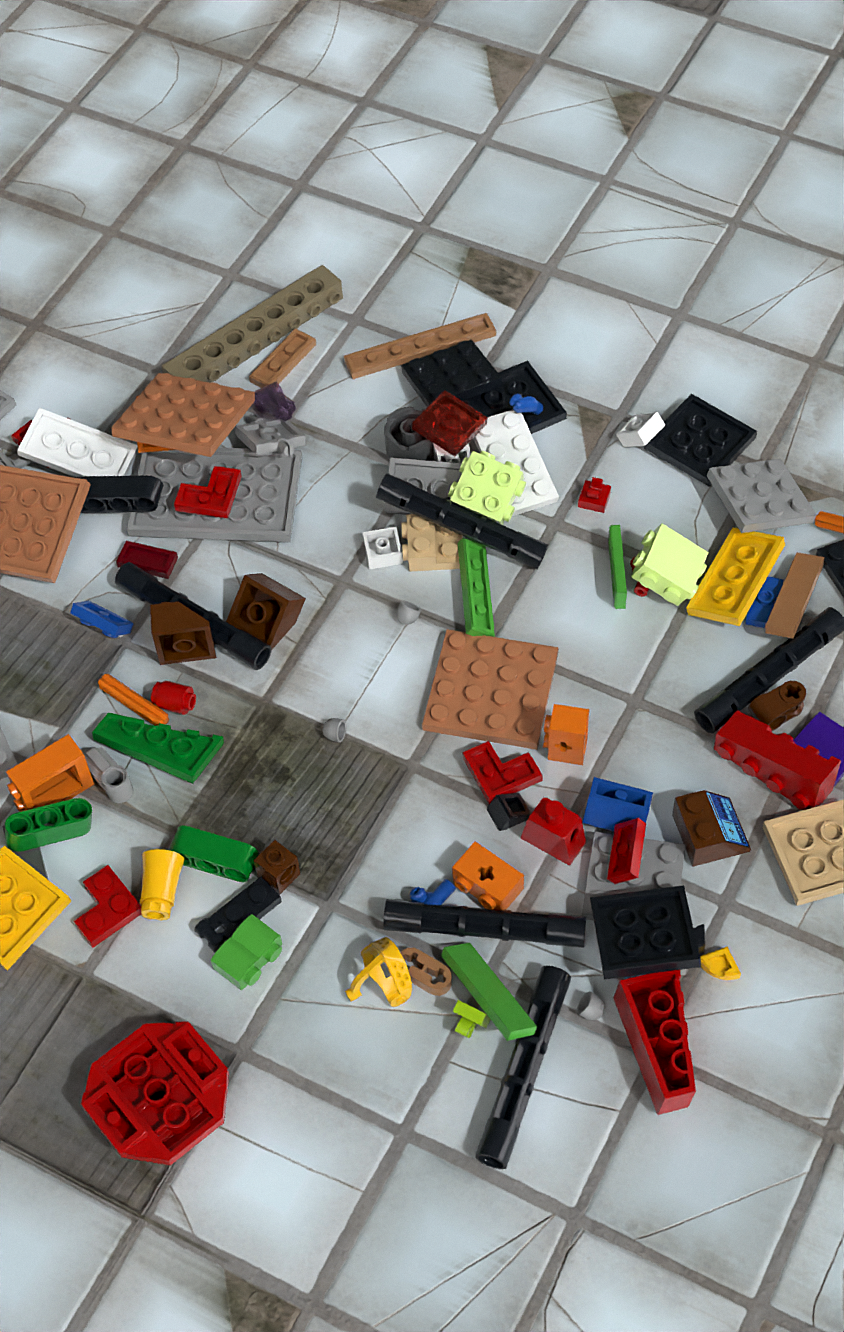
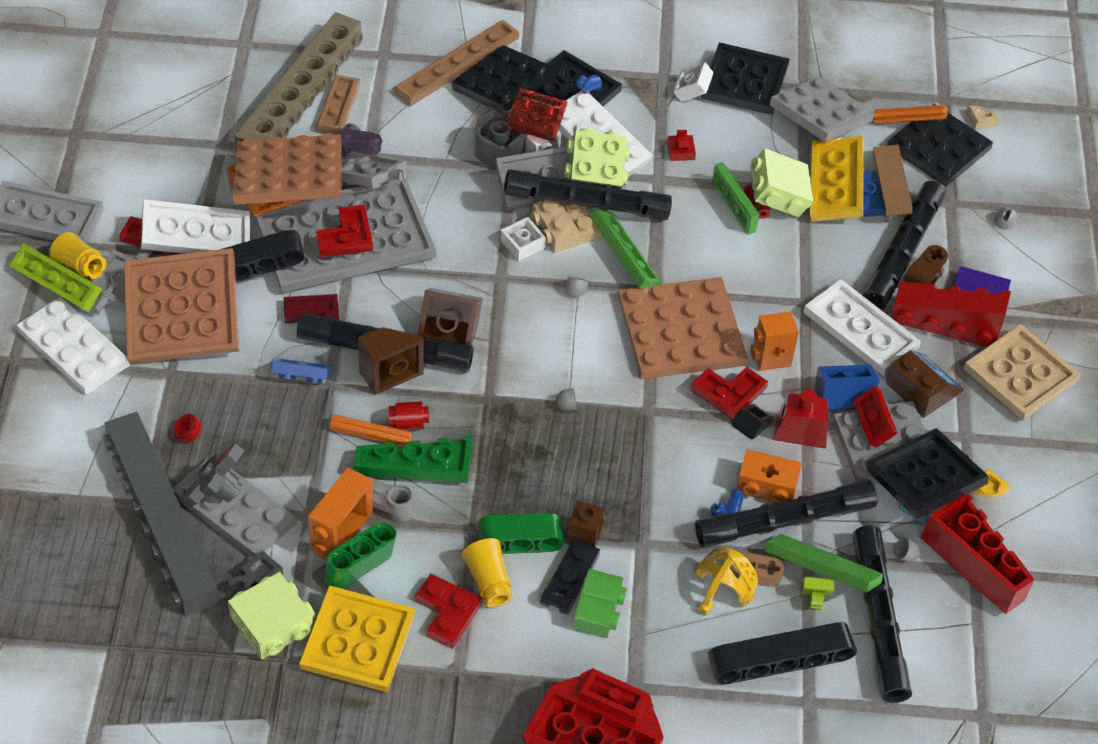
camera: 30 degrees left, 5 degrees down
(399, 1071) = (782, 653): none -> black beam
(675, 745) = (861, 326): none -> white plate

